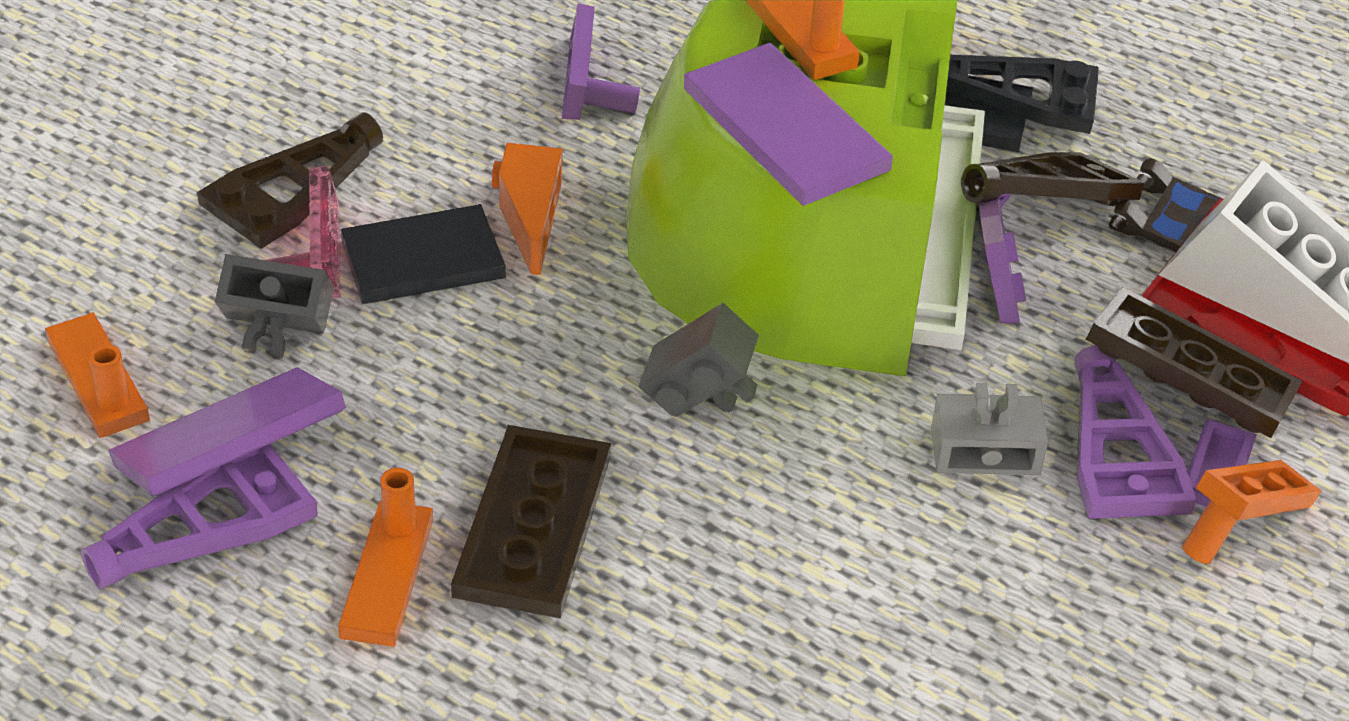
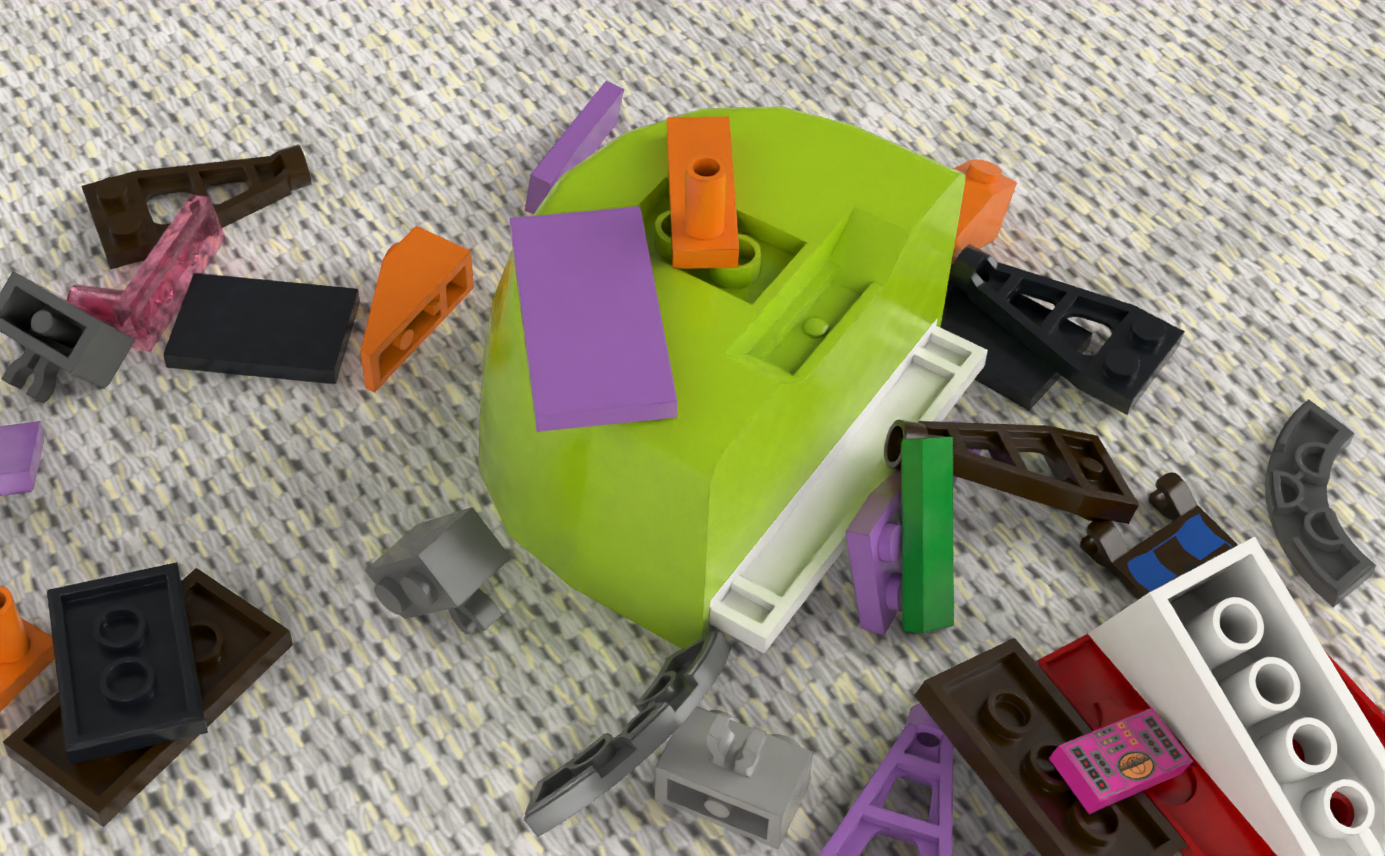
camera: 25 degrees right, 5 degrees up
(508, 499) = (125, 663): none -> black tile
(923, 402) = (608, 760): none -> dark grey tile
(1028, 235) = (927, 534): none -> green tile
(1222, 140) = (1300, 506): none -> dark grey tile
(1236, 339) = (1120, 760): none -> tile

